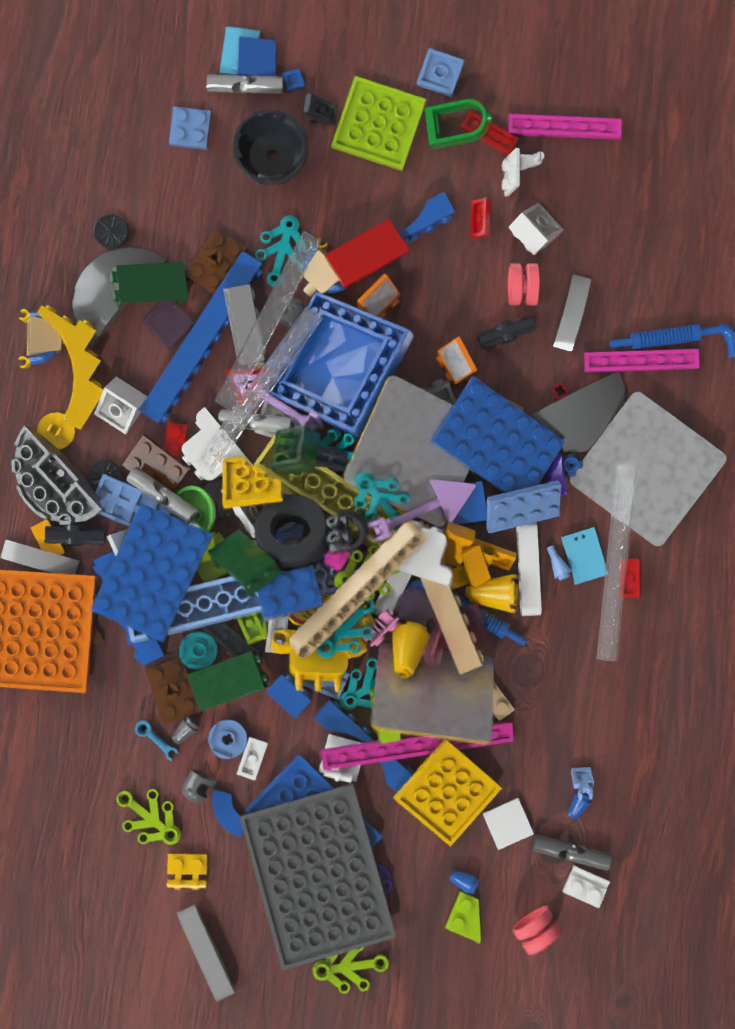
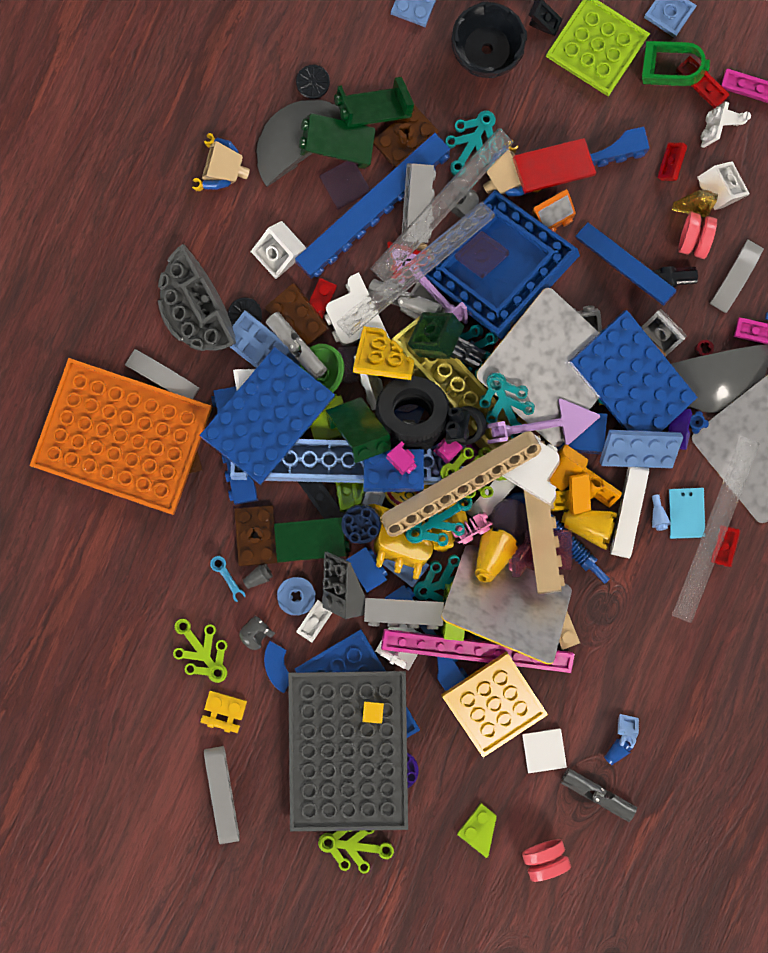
camera: 20 degrees right, 0 degrees up
(39, 533) = (175, 358): light orange tile -> none
(56, 430) = (212, 257): yellow piece -> none
(74, 535) = (201, 362): black piece -> none
(76, 338) = (254, 200): yellow arch -> none
(177, 240) = (375, 105): none -> dark green panel
(198, 650) = (290, 503): teal tile -> none
(269, 721) = (341, 588): none -> dark grey slope
(271, 653) = (361, 523): none -> dark blue tile
(293, 582) = (401, 459): none -> dark pink brick
(319, 358) = (481, 254): none -> clear purple tile
(331, 832) = (373, 712): none -> yellow tile
(335, 727) = (403, 612): none -> light grey brick
(456, 362) = (612, 293): slope -> none
(460, 328) = (625, 264): none -> blue tile
(464, 881) = (487, 794): blue cone -> none
(515, 252) = (697, 202): none -> clear yellow wing
(515, 386) = (663, 331): none -> light grey slope
(586, 886) = (603, 832): white plate -> none

